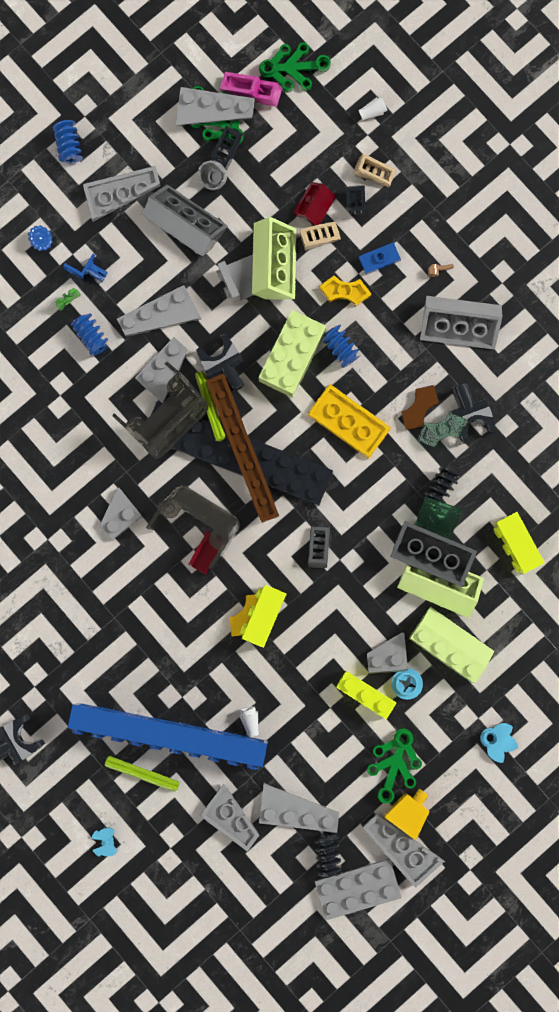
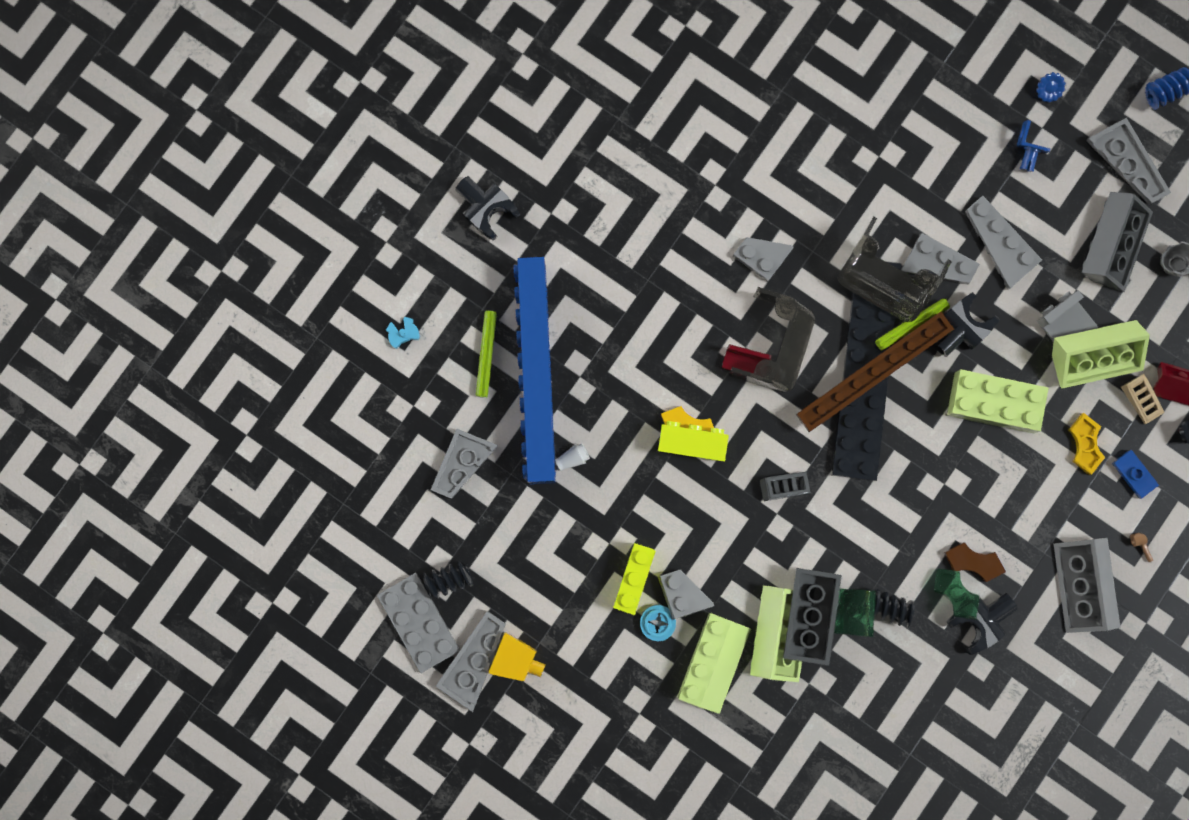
camera: 75 degrees right, 0 degrees up
(62, 302) = (984, 130): bright green piece -> none
(89, 334) = (957, 169): blue piece -> none
(294, 811) = (486, 527): light grey wing -> none
(340, 346) = (1020, 454): blue piece -> none
(349, 421) = (937, 485): yellow tile -> none
(395, 762) = (567, 632): green plant -> none
(501, 741) = (617, 745): medium azure plate -> none
(518, 543) = (849, 712): neon yellow brick -> none

